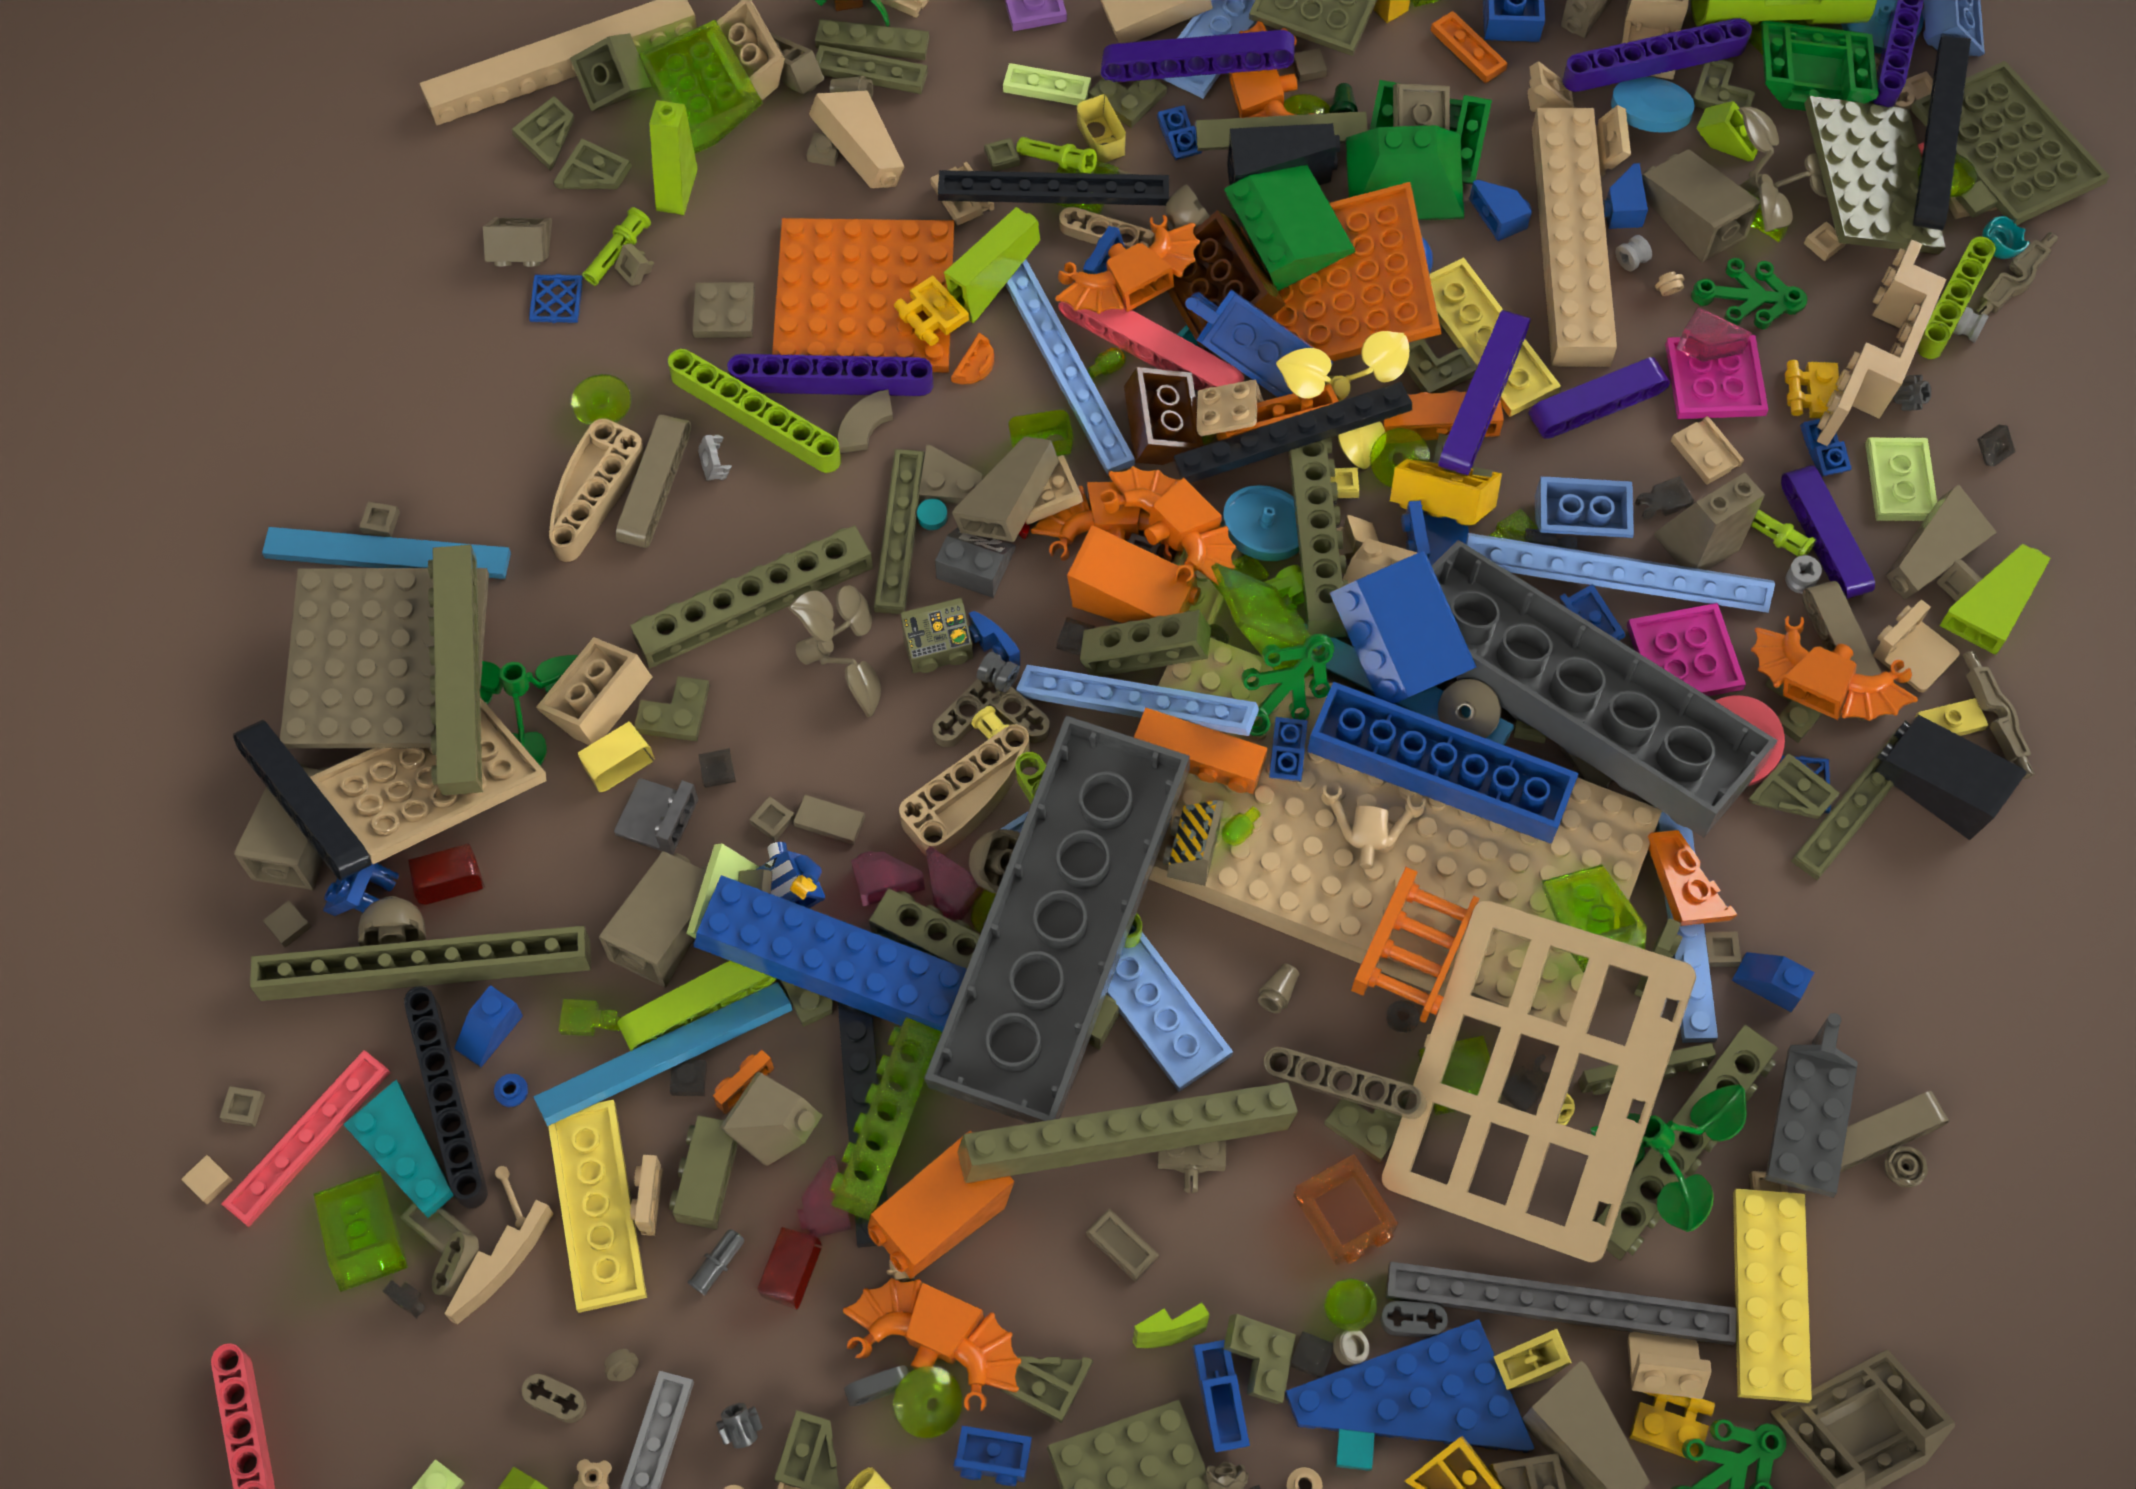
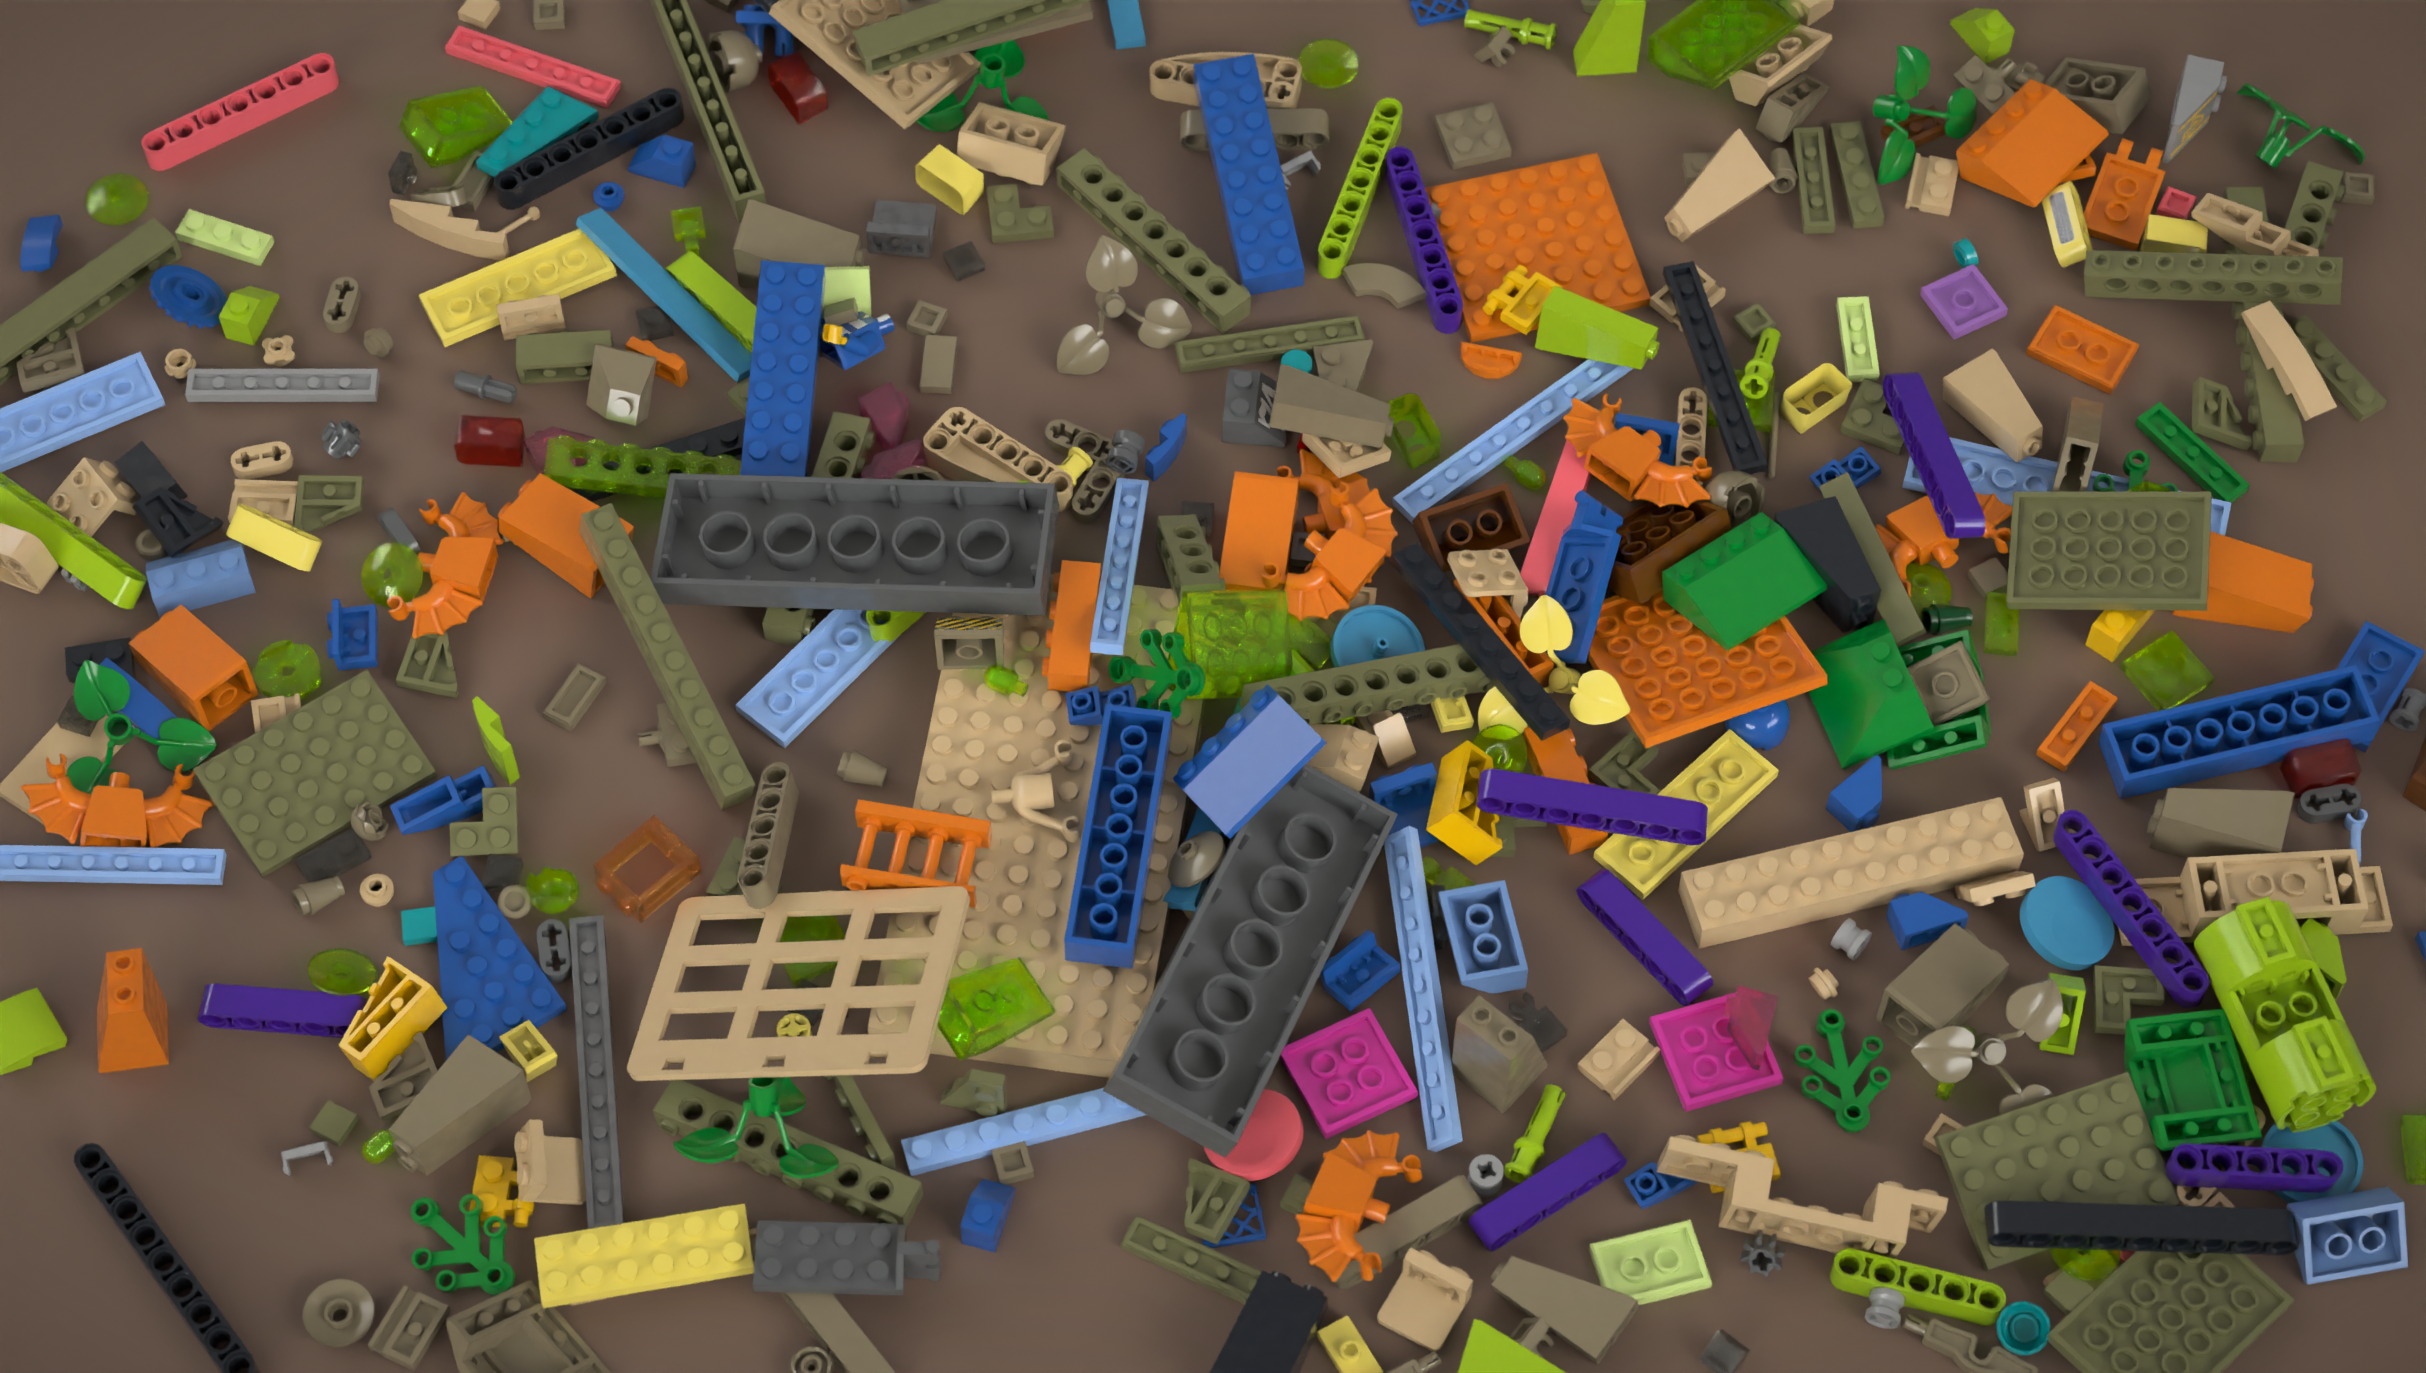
camera: 75 degrees right, 5 degrees down
(716, 490) = (1248, 174): none -> blue brick
(936, 636) = (1148, 393): olive slope -> none
(1358, 68) = (2000, 626): none -> clear neon green plate
(1685, 886) = (1064, 1104): orange wing -> none

